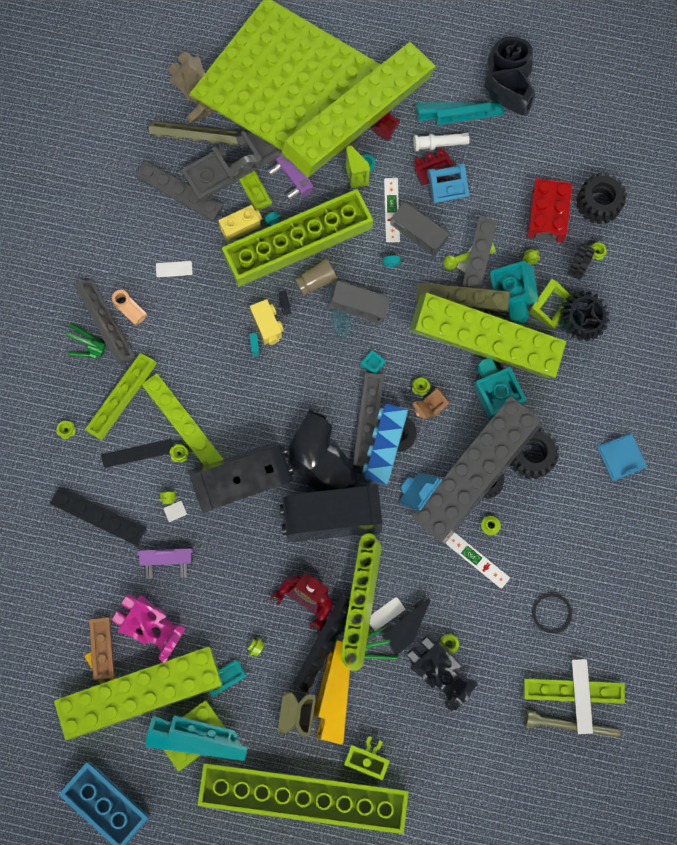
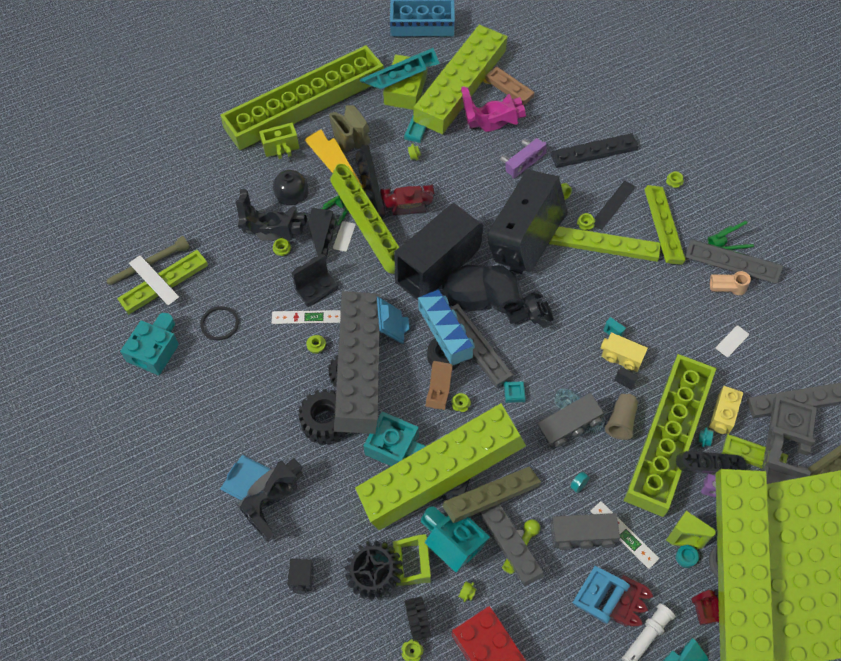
camera: 145 degrees right, 15 degrees down
(296, 404) = (540, 311): none -> black plate
(311, 202) = (711, 462): none -> black beam
(394, 703) = (290, 187): none -> black cylinder
(450, 579) = (313, 281): none -> black bracket
(619, 427) = (271, 486): none -> black hips
(623, 631) = (151, 345): none -> teal brick
(635, 354) = (300, 575): none -> black brick

